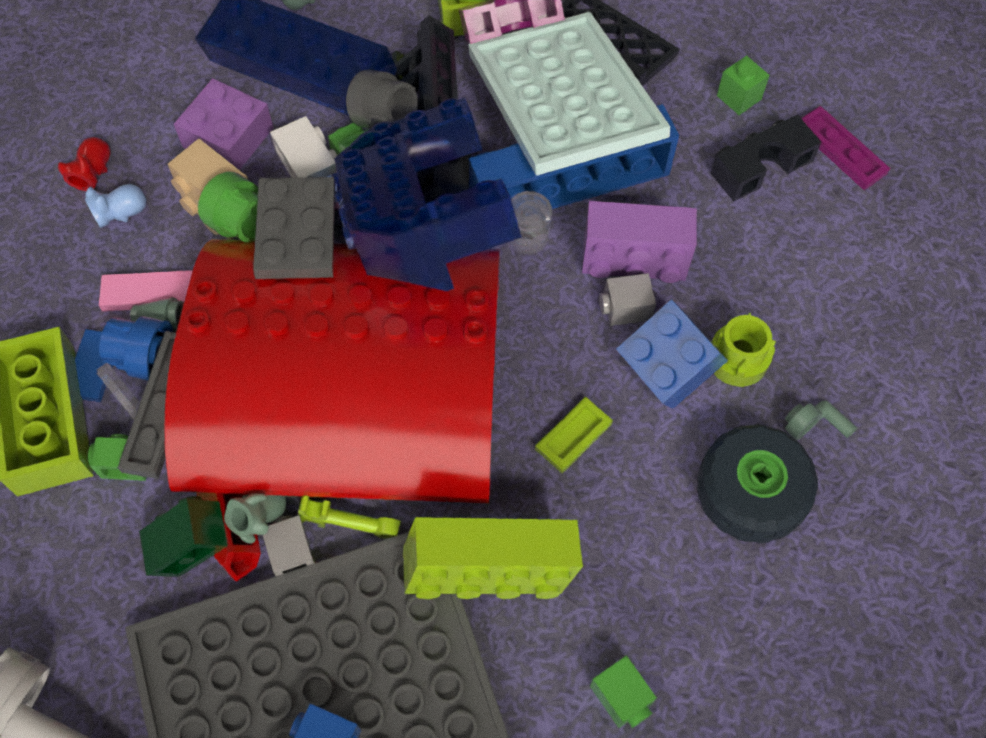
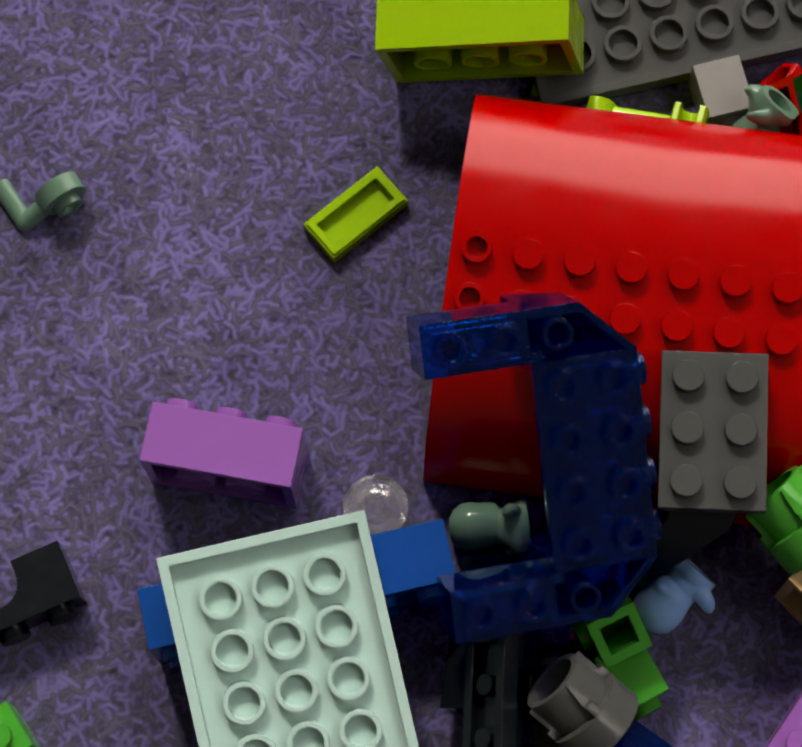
camera: 170 degrees left, 10 degrees up
(303, 150) = (703, 675): white brick -> none
(628, 299) = (254, 384): light grey brick -> none
(671, 354) = (212, 281): brick -> none
(757, 347) = (110, 272): lime piece -> none
(757, 483) = (142, 115): black wheel -> none

